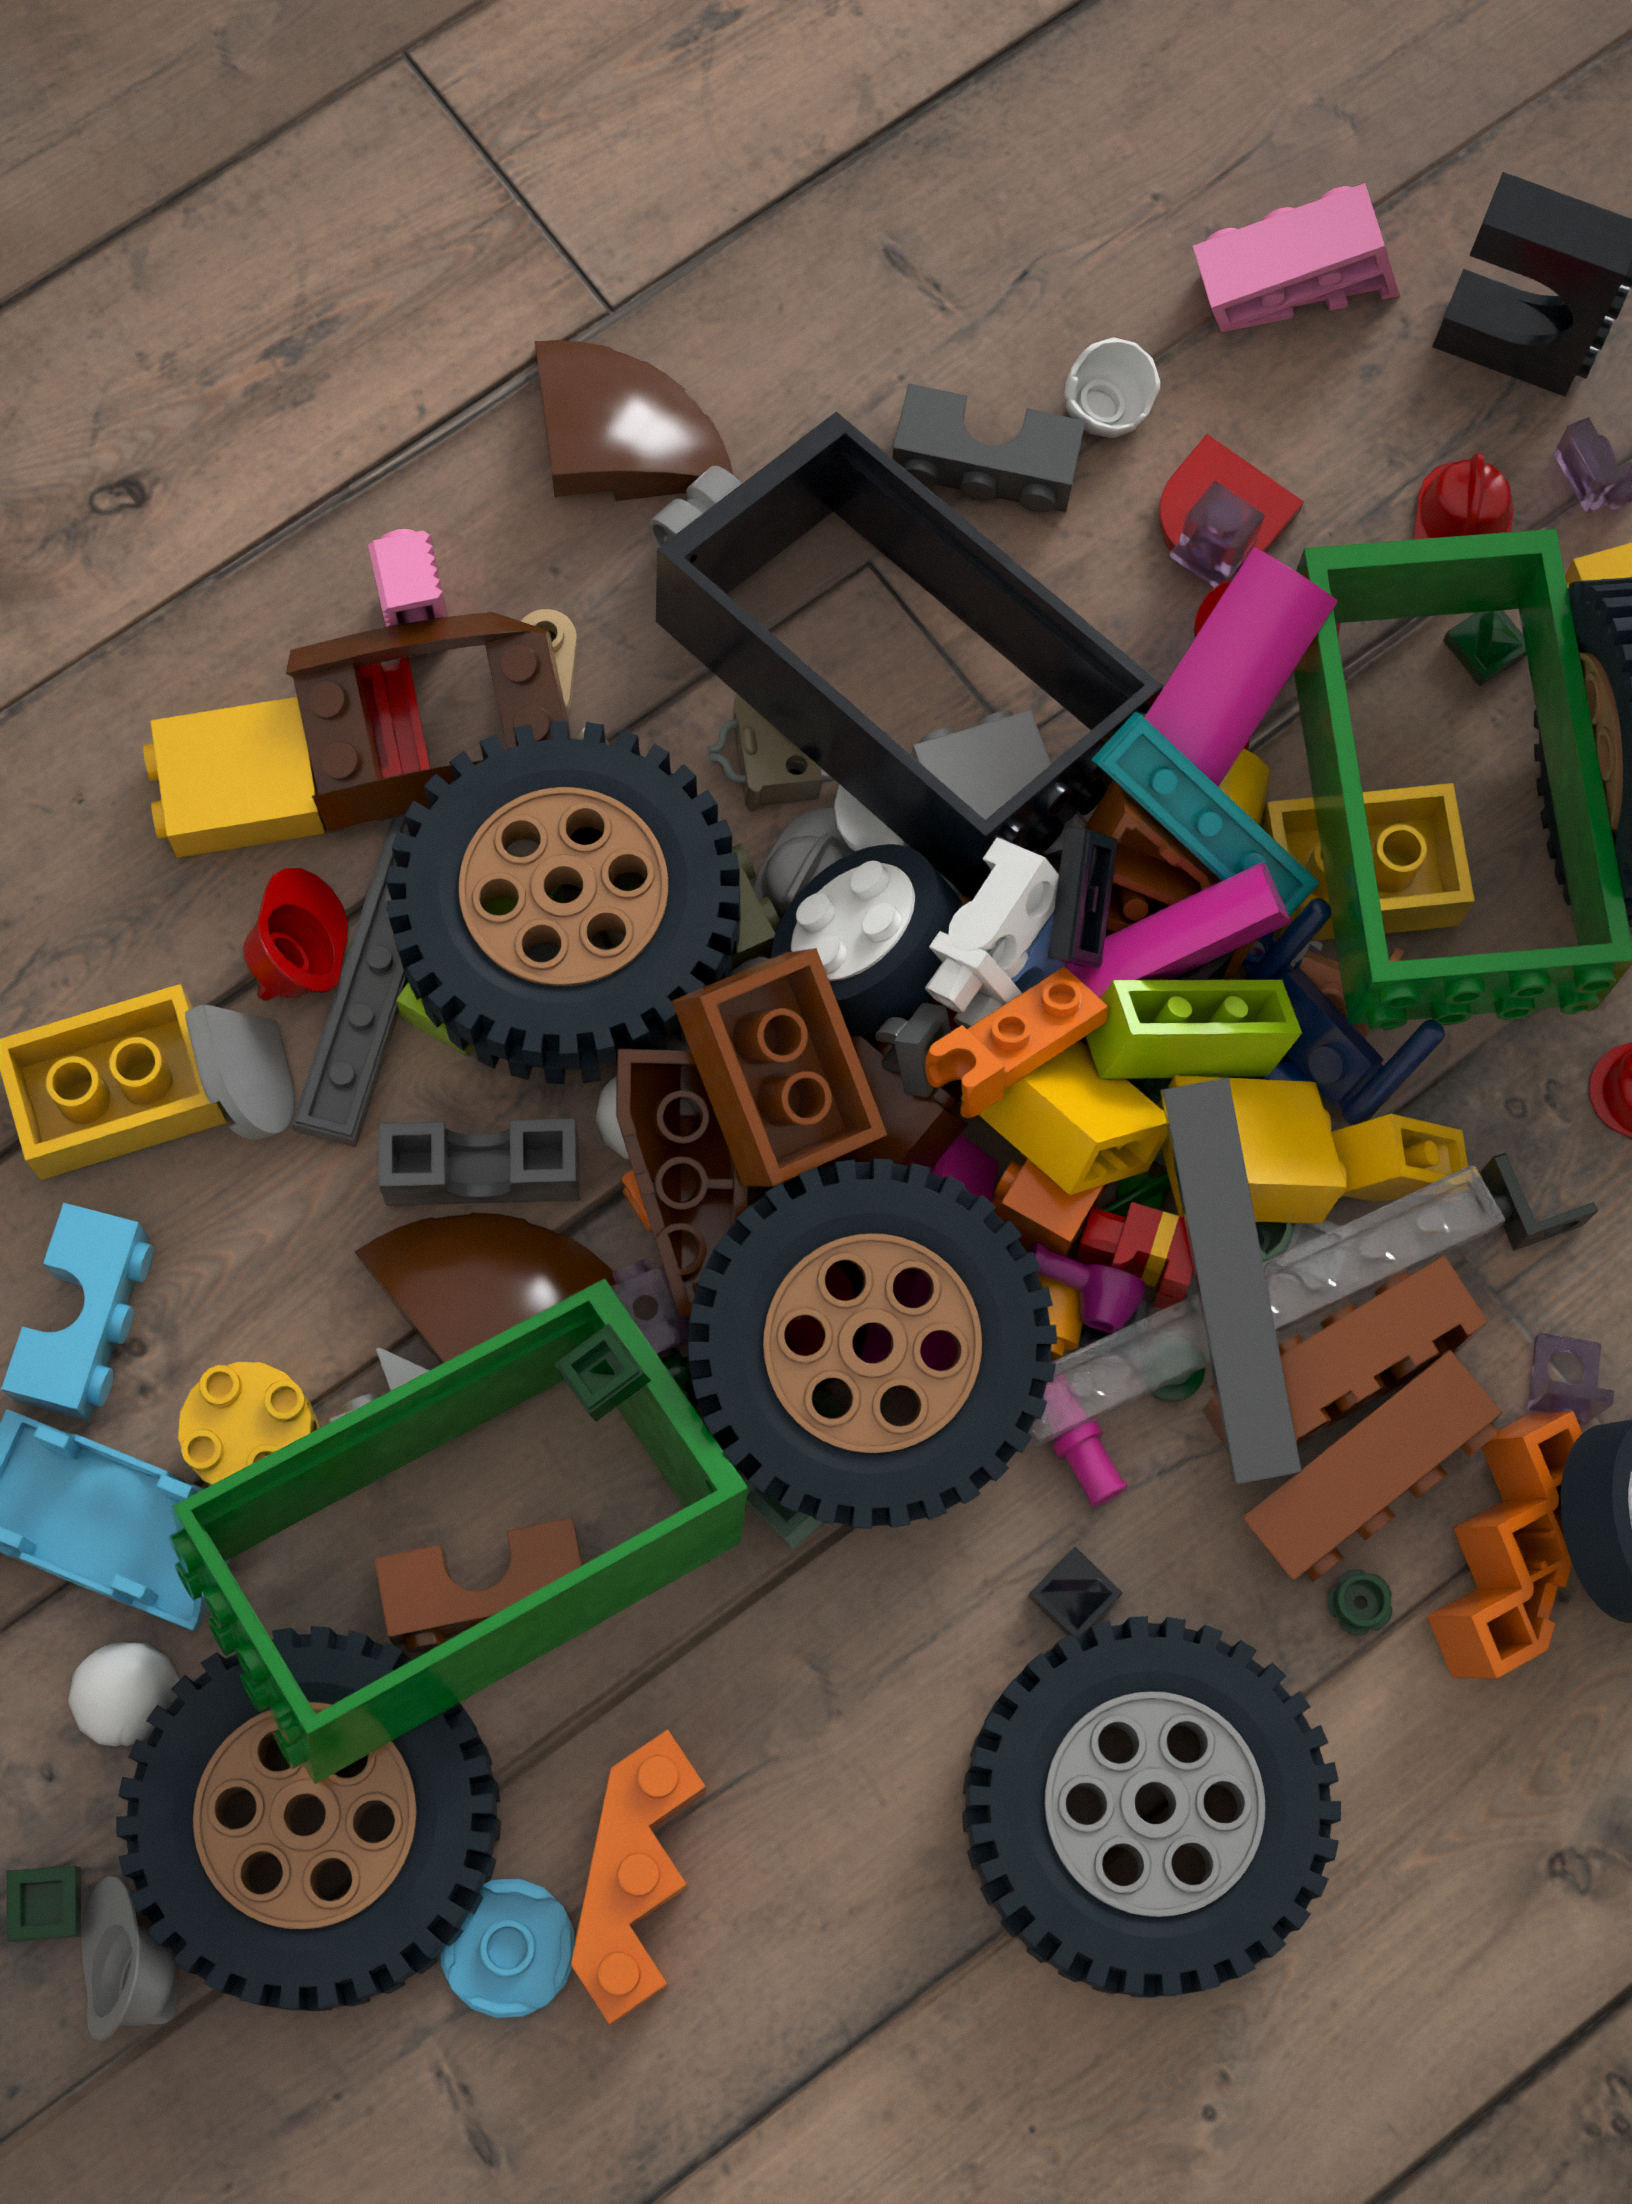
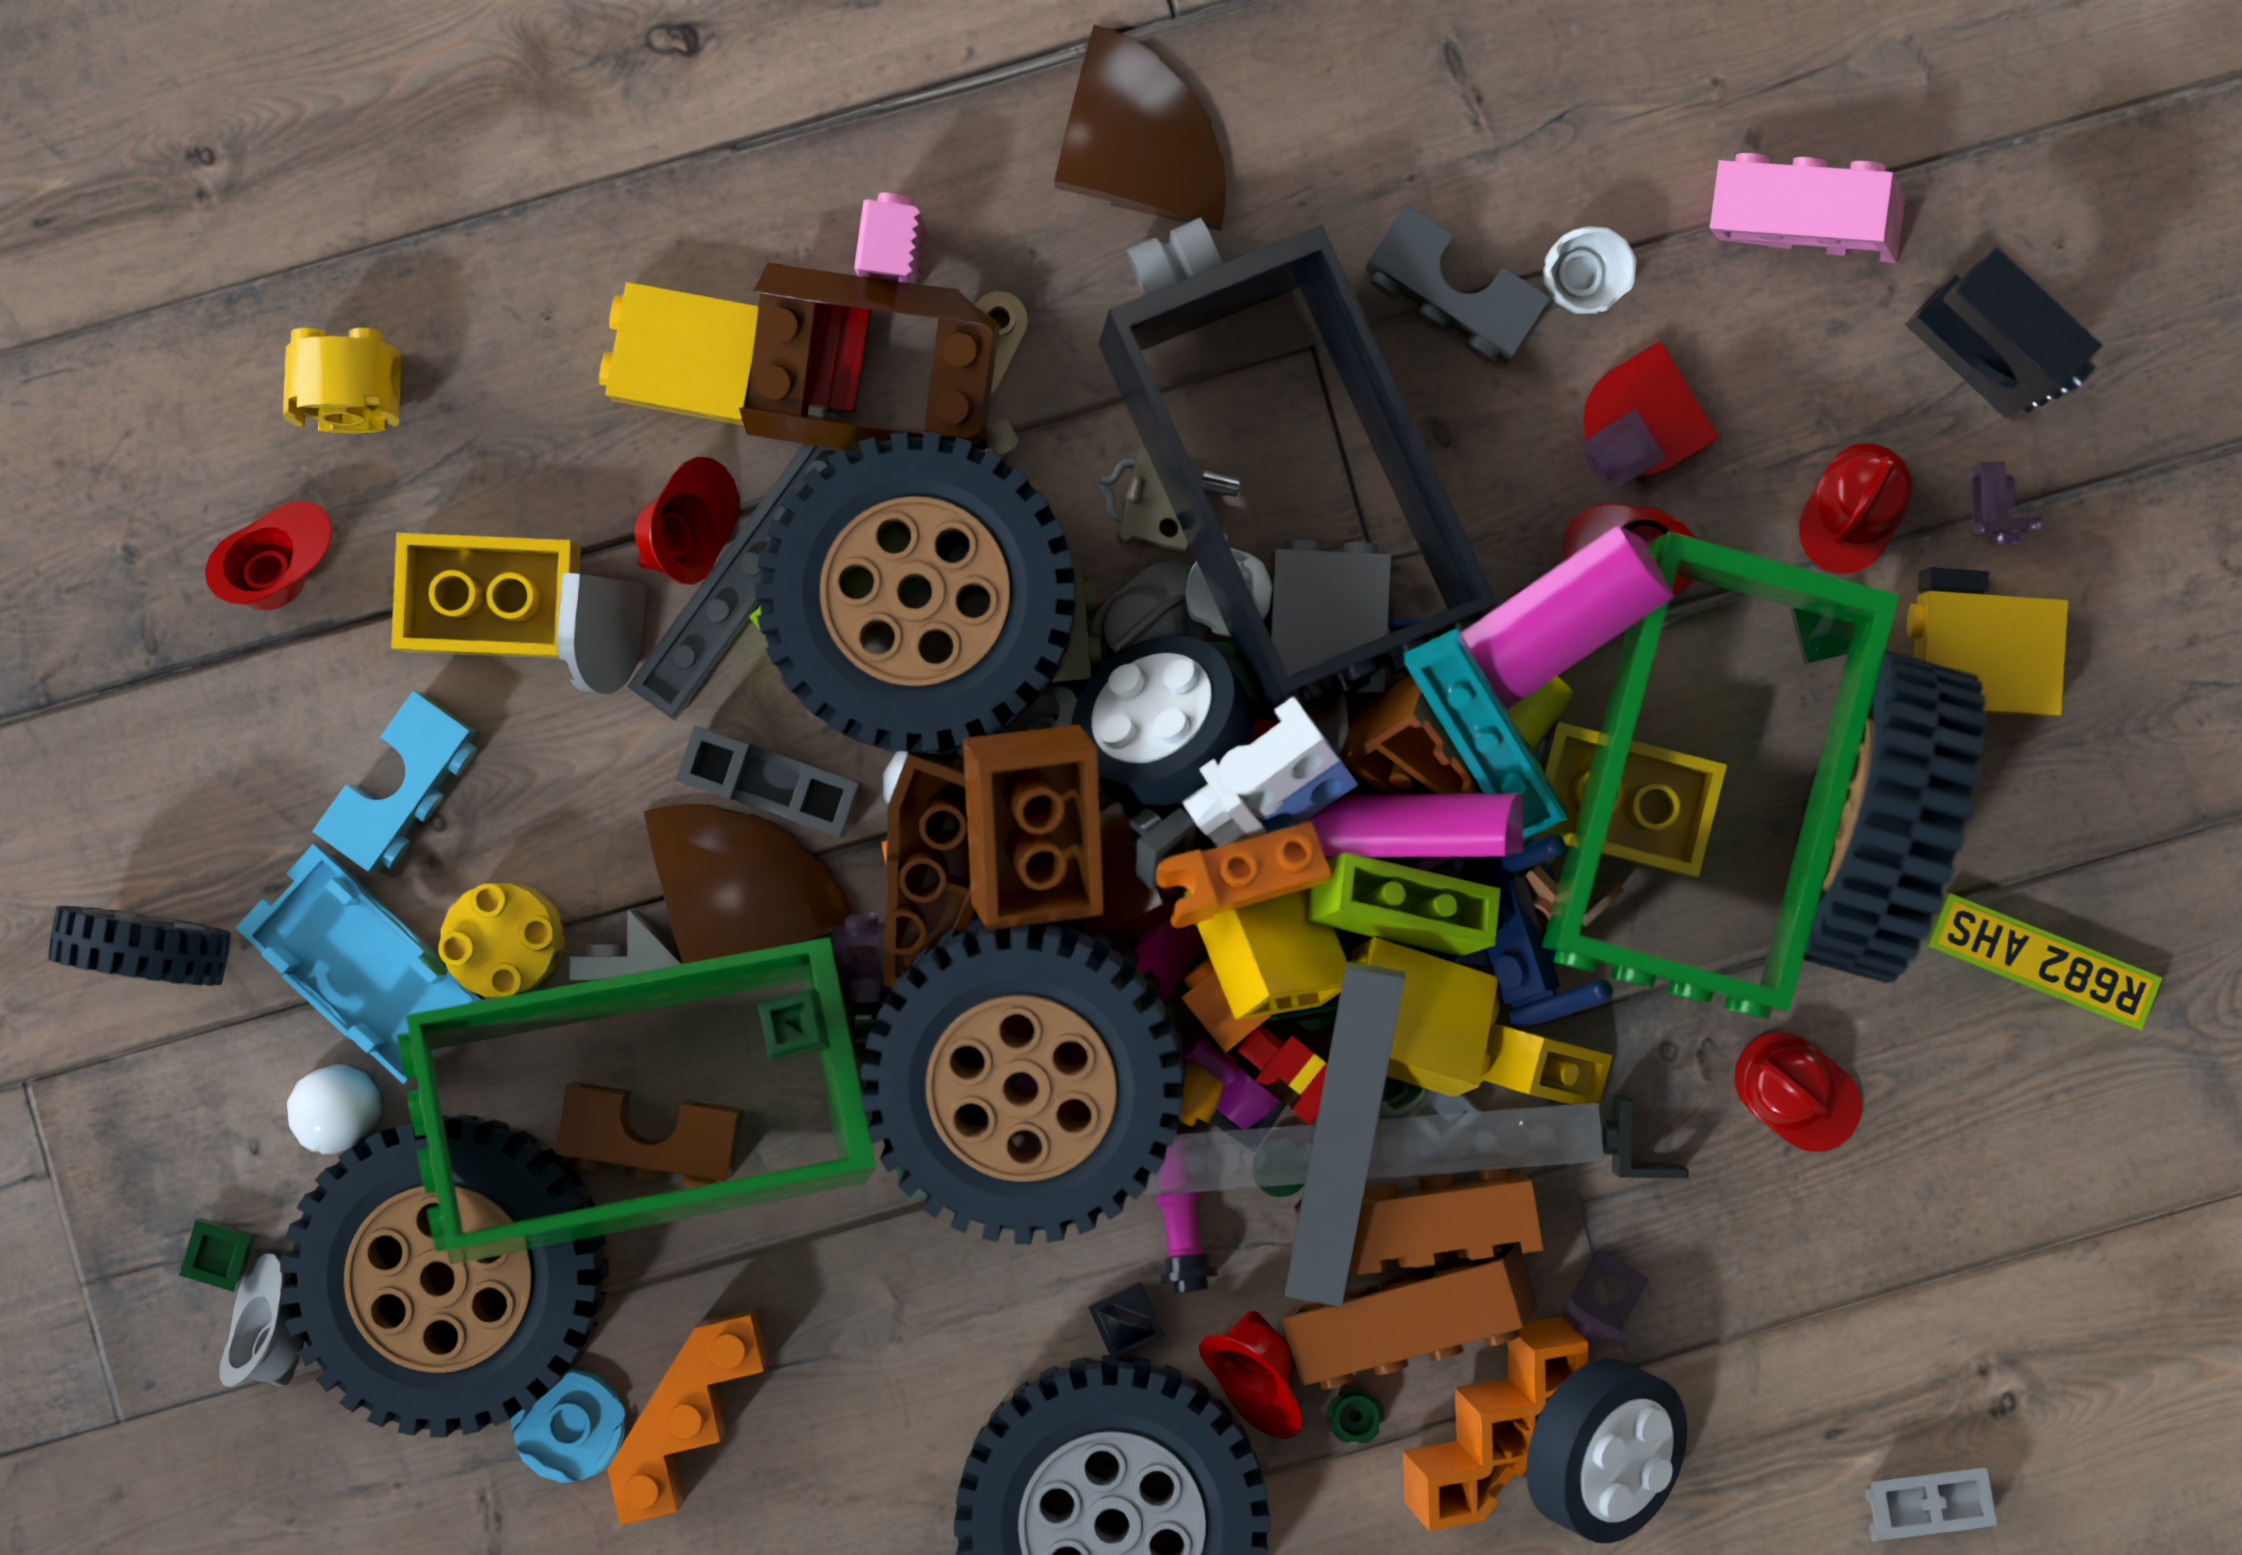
camera: 30 degrees right, 15 degrees up
(1083, 897) = (1347, 773): black tile -> none
(1121, 1513) = (1189, 1272): none -> black plate
(1235, 1588) = (1255, 1374): none -> red piece
(1592, 542) = (1953, 580): none -> black tile

